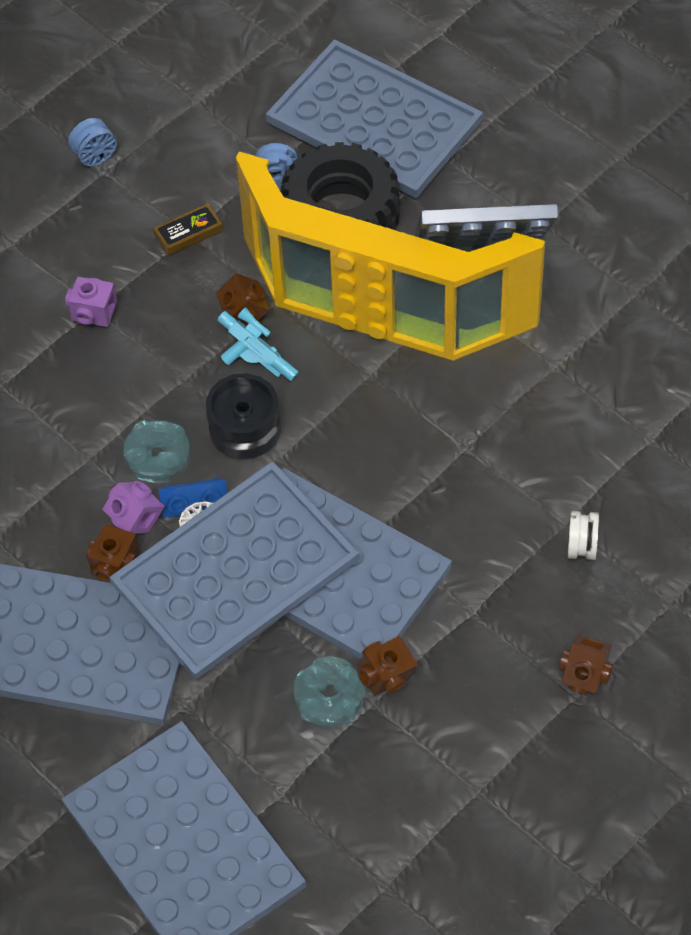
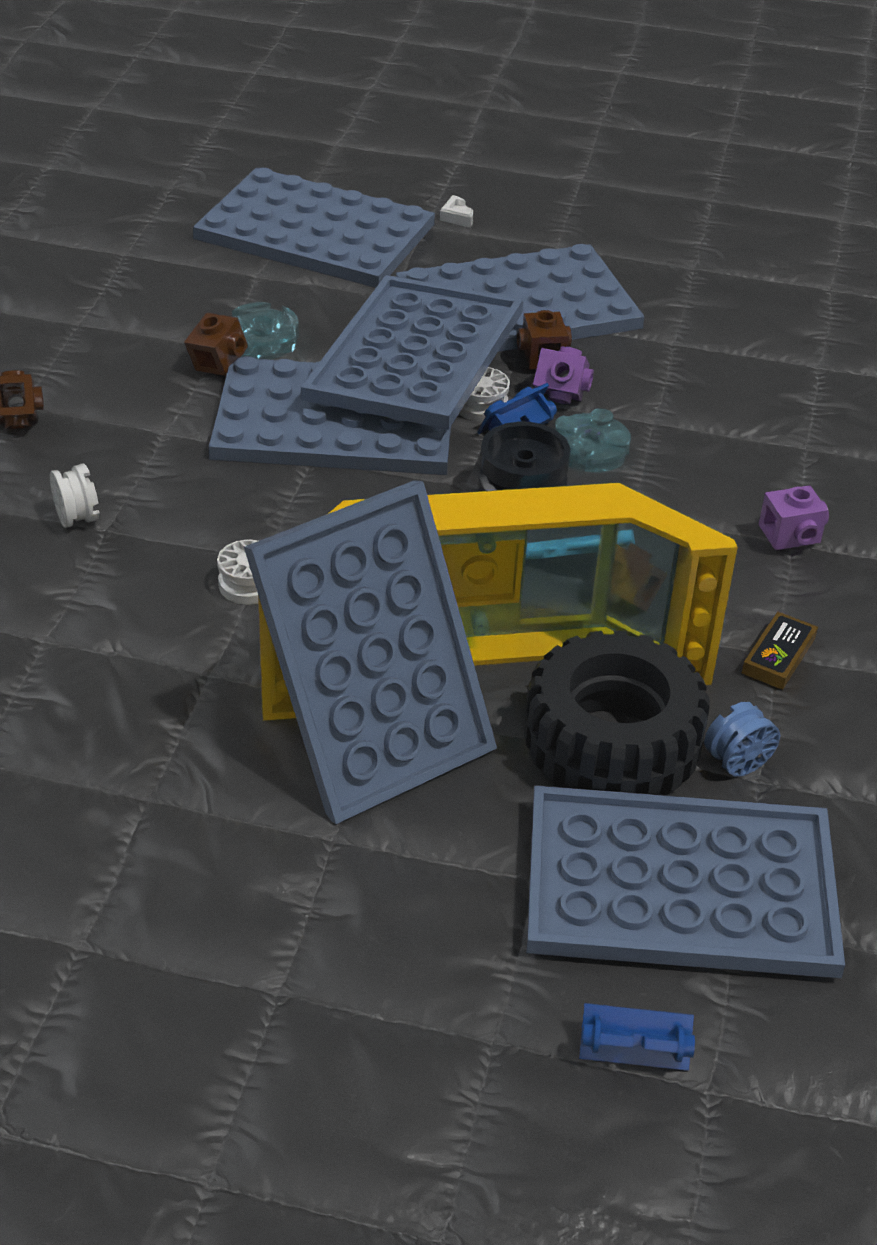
camera: 145 degrees right, 15 degrees down
(31, 804) = (457, 212): none -> white tile
(453, 47) = (637, 1036): none -> blue hinge
(490, 413) = (235, 574): none -> white wheel

